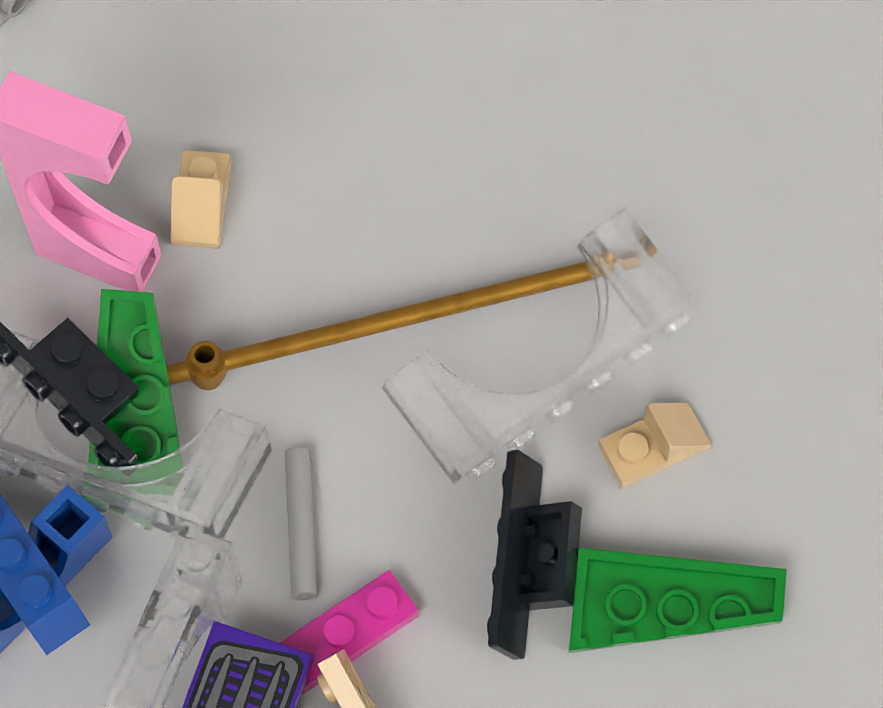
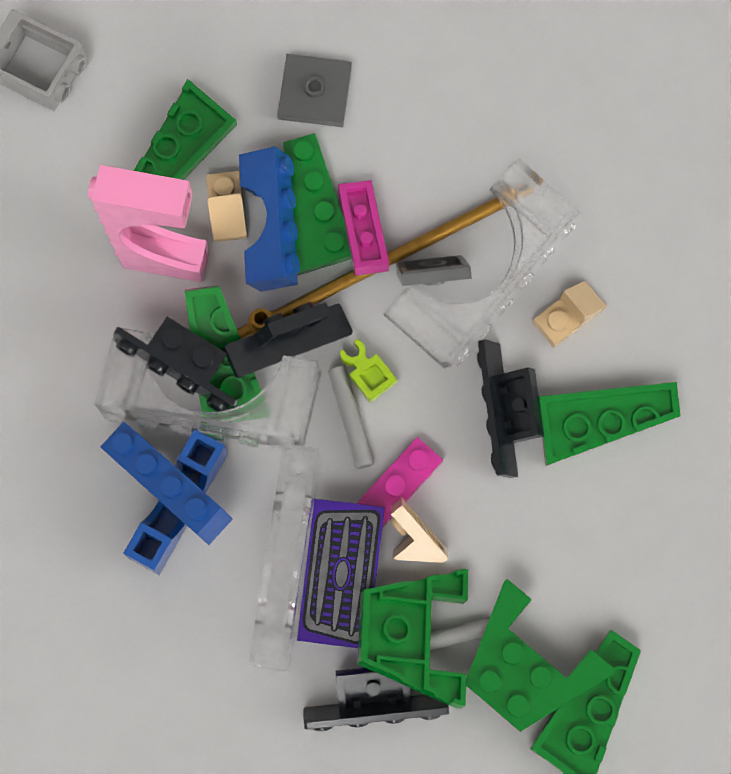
camera: 15 degrees left, 10 degrees up
(172, 95) = (187, 136): none -> green wing
(243, 382) = (288, 336): none -> black bracket
(245, 277) = (272, 259): none -> blue arch
(319, 238) = (317, 213): none -> green wing
(342, 468) = (370, 375): none -> lime plate
(364, 69) = (314, 90): none -> dark grey plate
(383, 263) = (363, 227): none -> dark pink plate
(466, 341) = (433, 270): none -> dark grey plate

